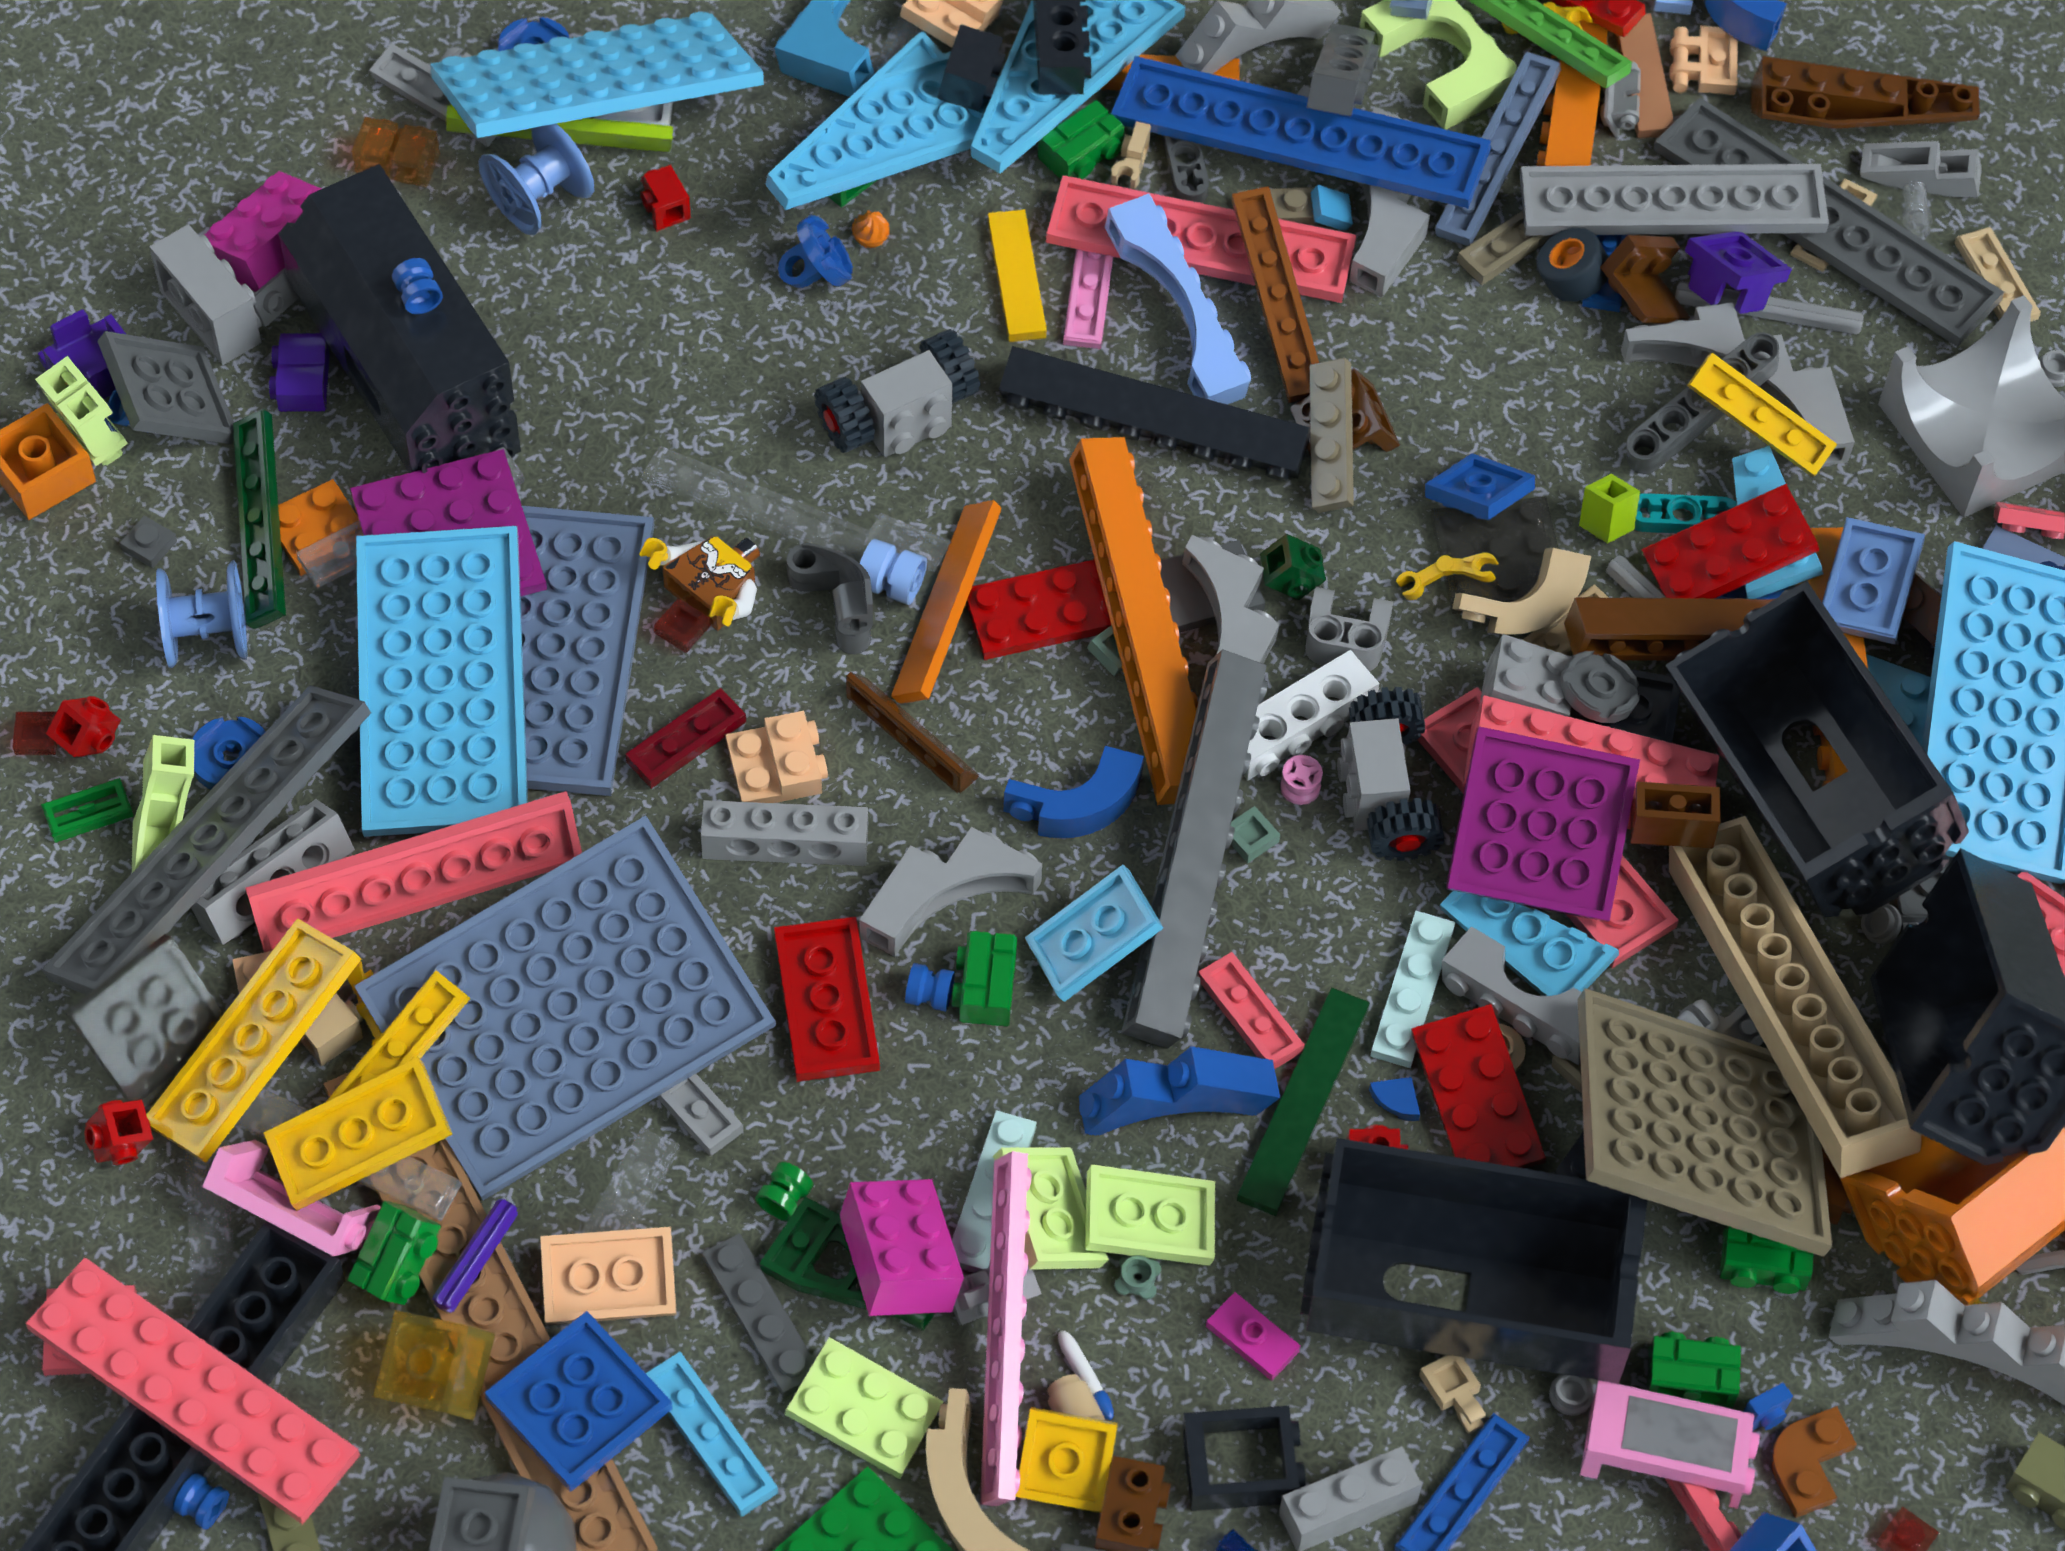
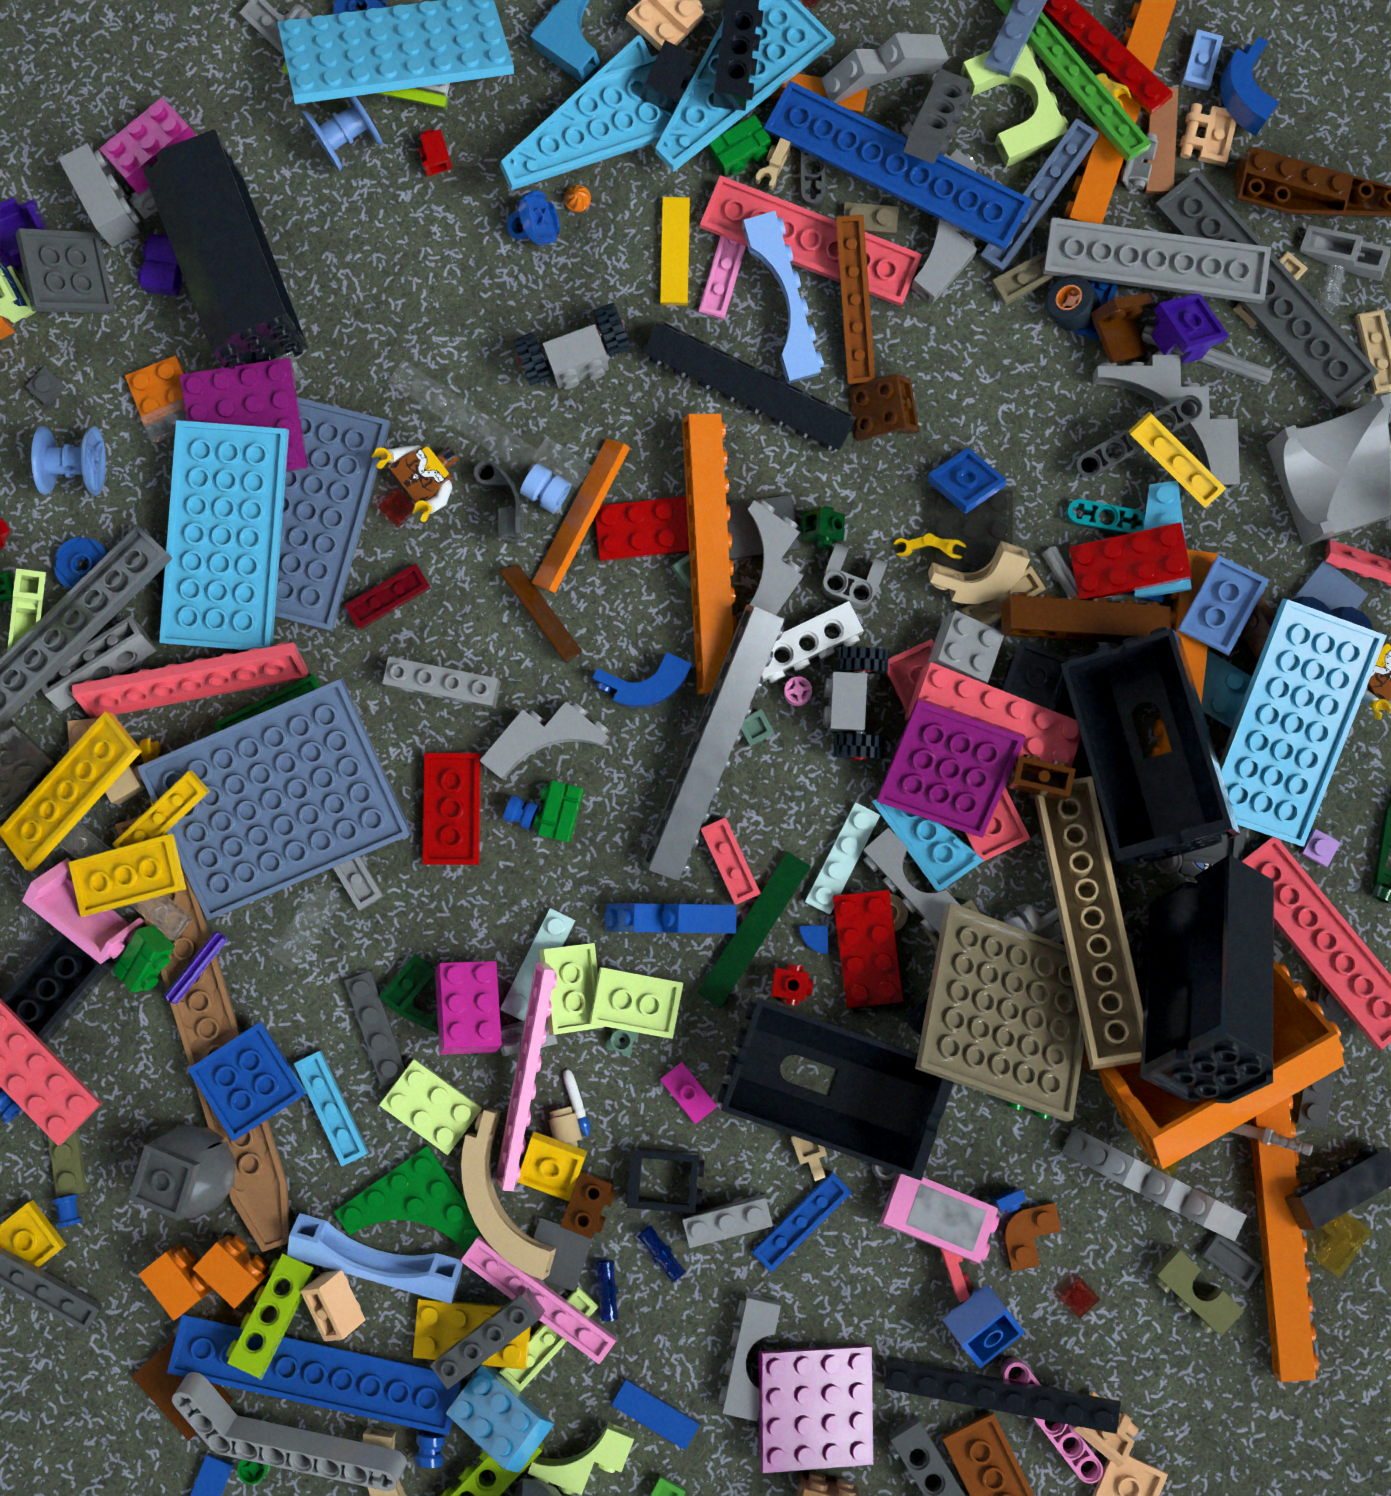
camera: 15 degrees right, 25 degrees up
(259, 519) = (120, 381): dark green tile -> none
(385, 144) = (242, 83): clear orange piece -> none
(418, 289) = (225, 245): blue wheel -> none
(434, 1365) = (158, 1044): clear yellow brick -> none
(608, 1275) = (280, 990): light nougat plate -> none
(777, 760) = (446, 623): light nougat plate -> none
(784, 1191) = (407, 942): green wheel -> none
(1093, 933) = (634, 794): medium azure tile -> none
(1331, 208) = (909, 226): dark azure tile -> none
(1331, 435) = (870, 424): dark tan plate -> none
(1599, 687) = (1013, 663): dark grey tile -> none
(1609, 508) = (1054, 511): lime brick -> none
(1694, 1369) = (967, 1165): green brick -> none

